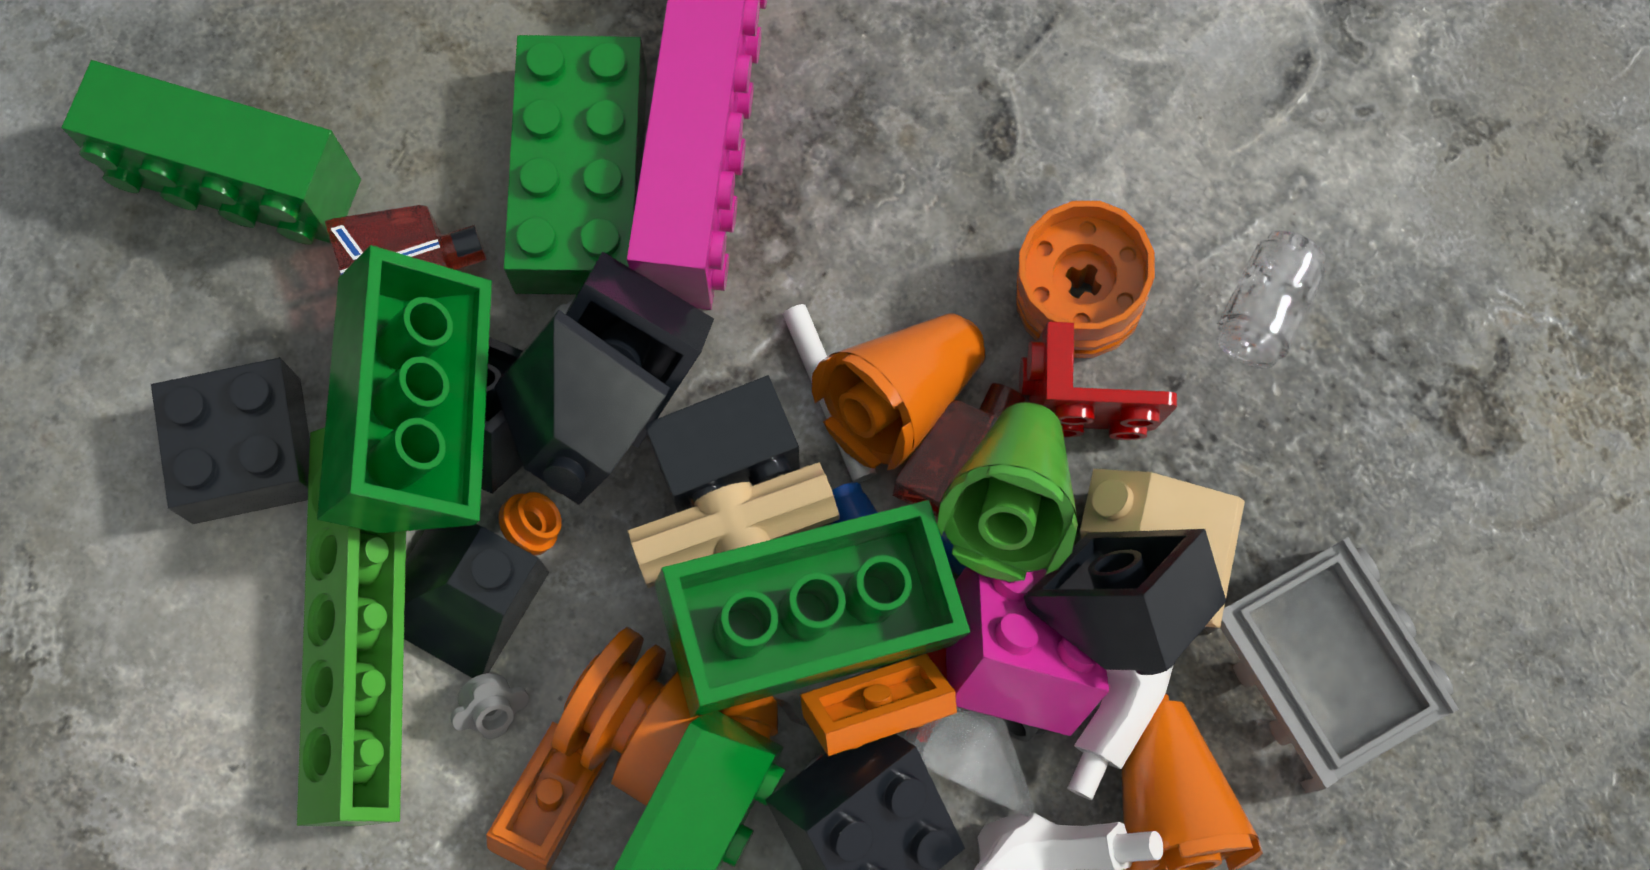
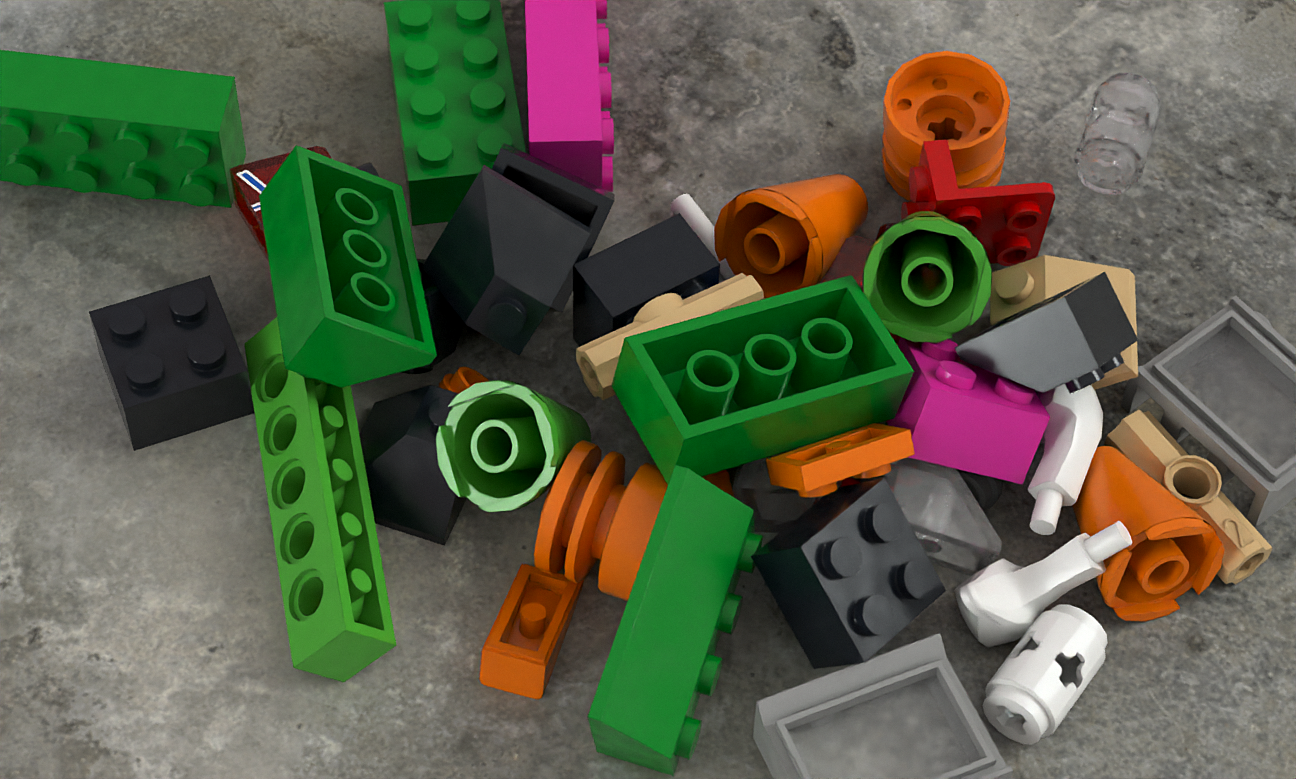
camera: 10 degrees left, 20 degrees down
(488, 705) = (446, 544): light grey plate -> none
(550, 624) = (505, 444): none -> bright green cone
(1226, 718) = (1160, 456): none -> tan piece

